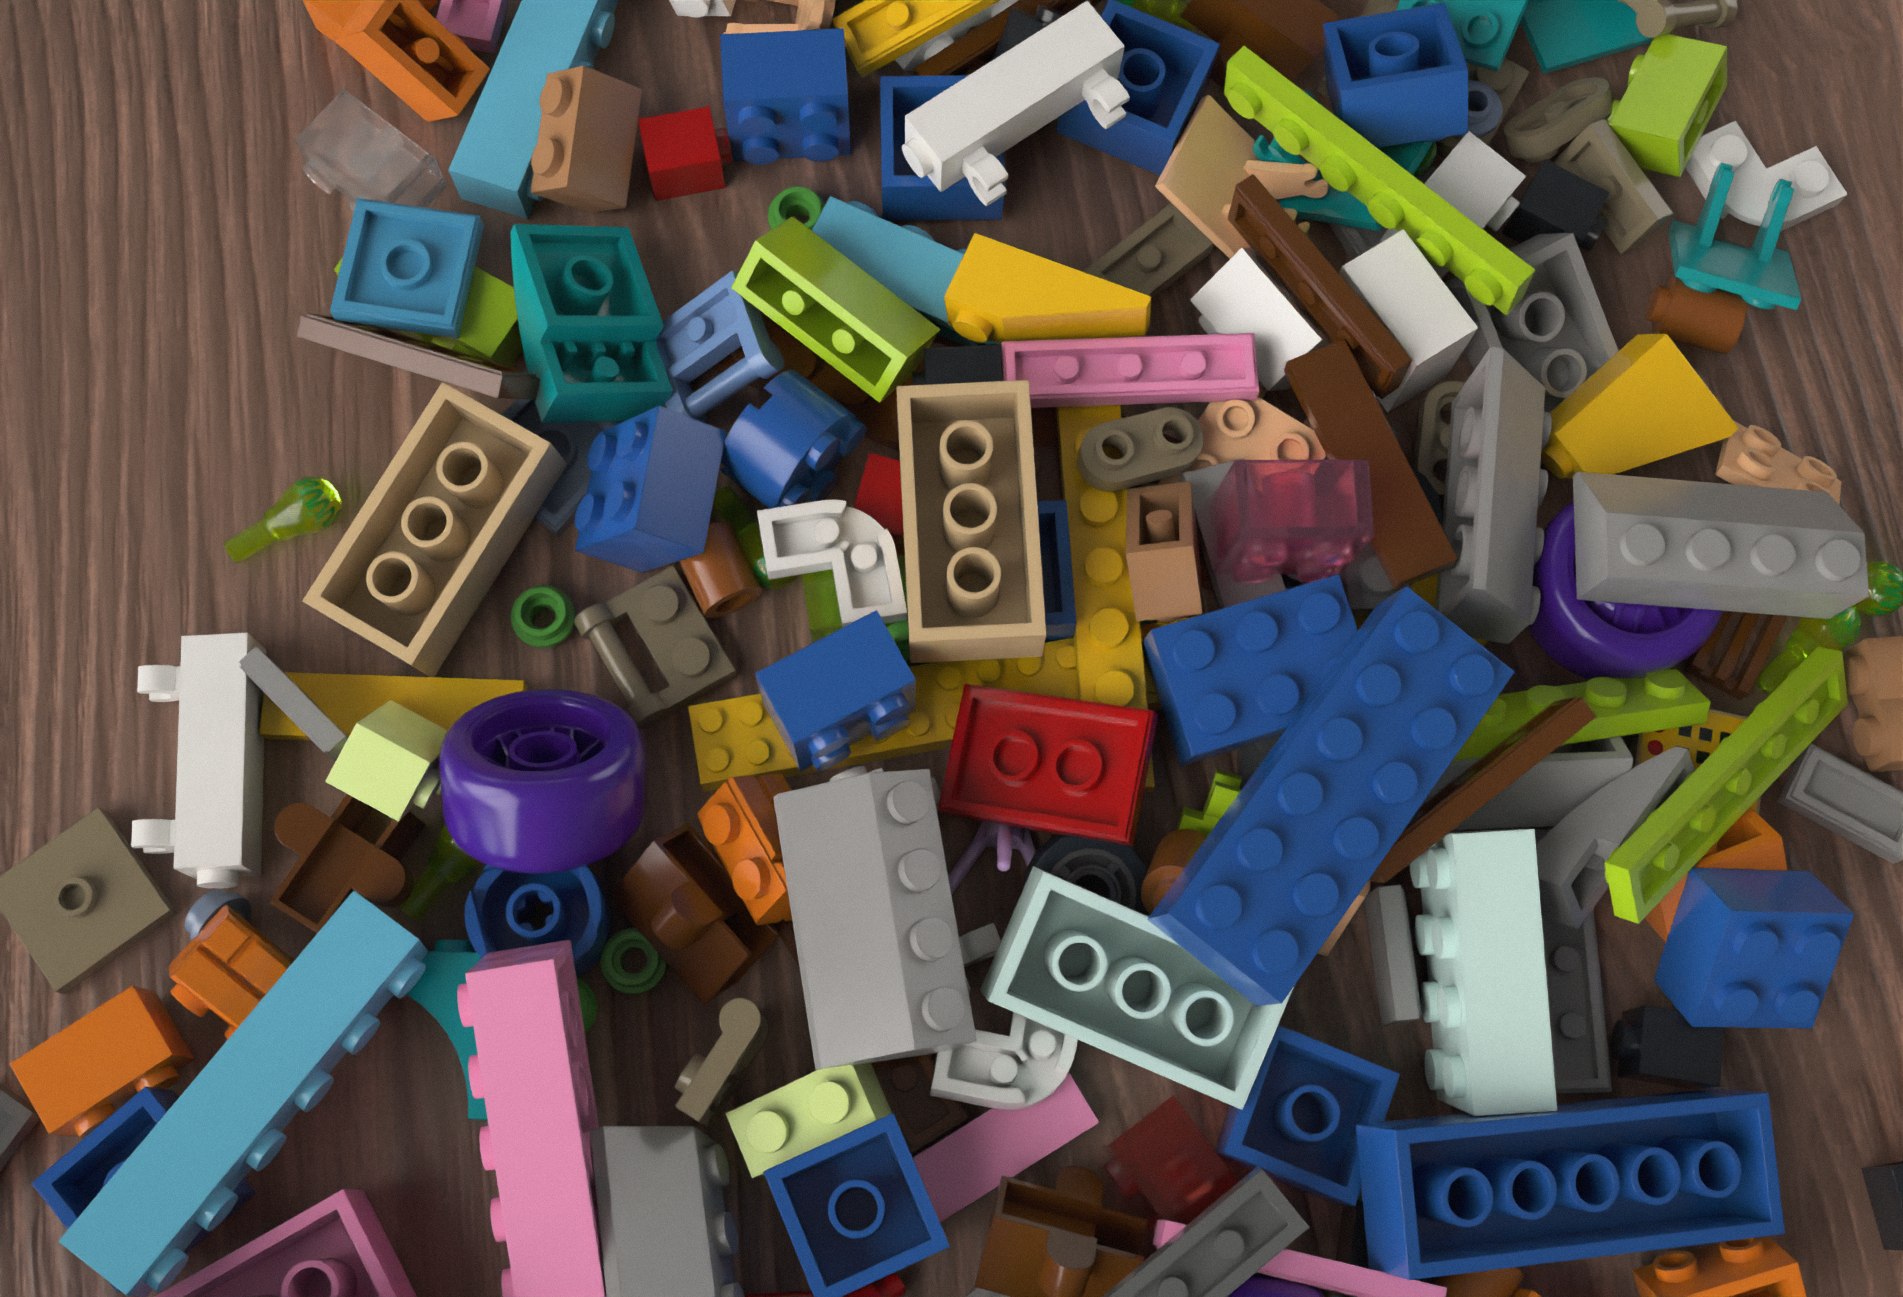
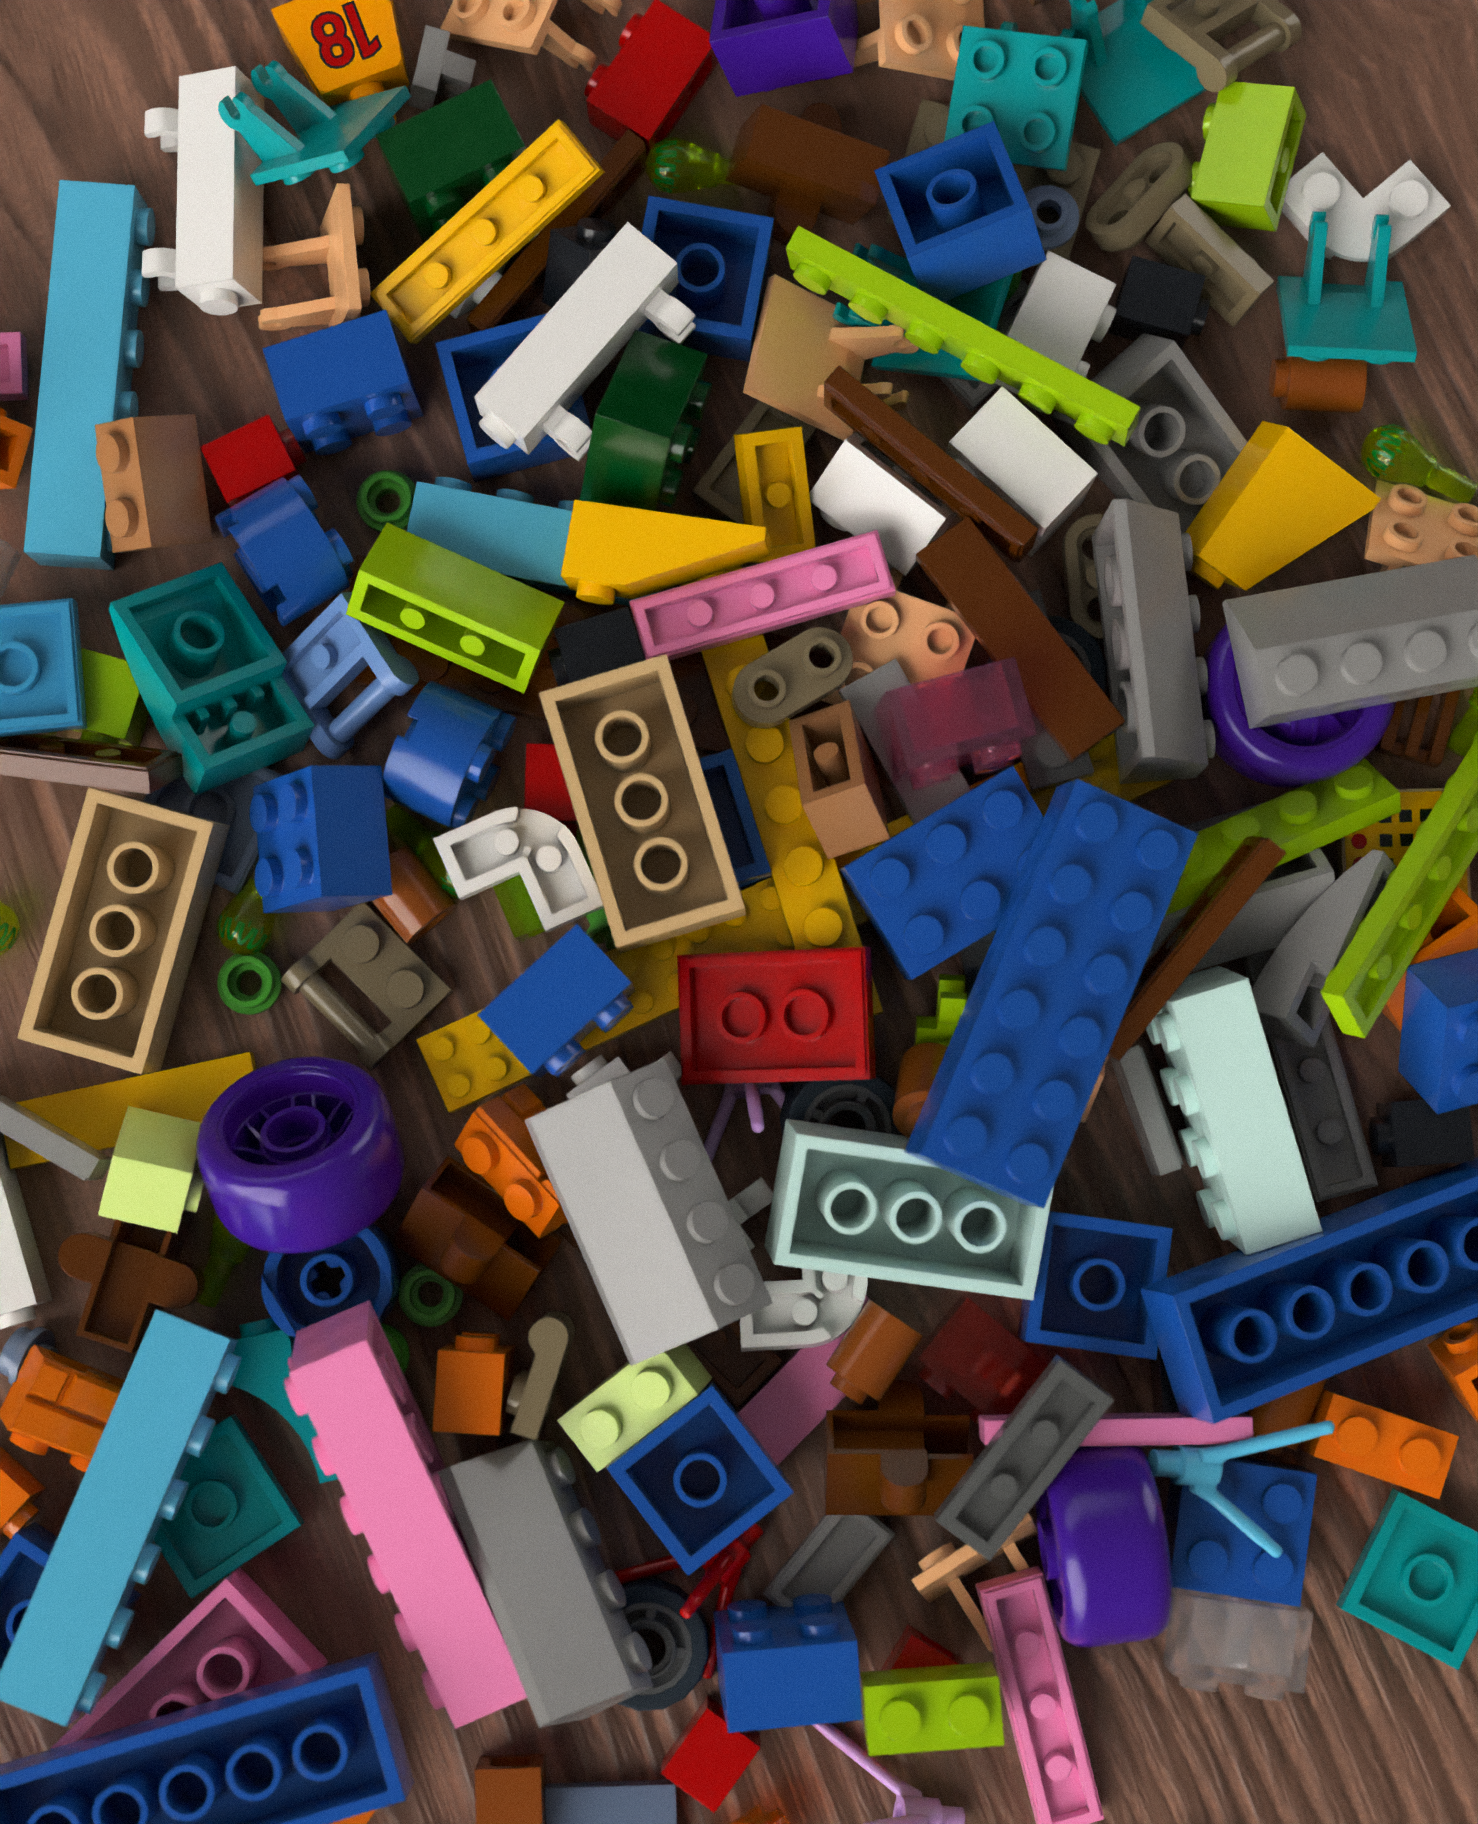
camera: 10 degrees left, 10 degrees up
(366, 1124) = (228, 1511): none -> teal plate
(553, 559) = (242, 923): none -> clear neon green piece
(650, 1053) = (473, 1384): none -> orange brick
(691, 225) = (286, 550): none -> blue brick
(1059, 187) = (646, 425): none -> dark green brick
(1063, 1128) = (872, 1353): none -> dark orange brick
(1166, 269) = (776, 488): none -> yellow plate
(1758, 400) = (1398, 456): none -> clear neon green piece

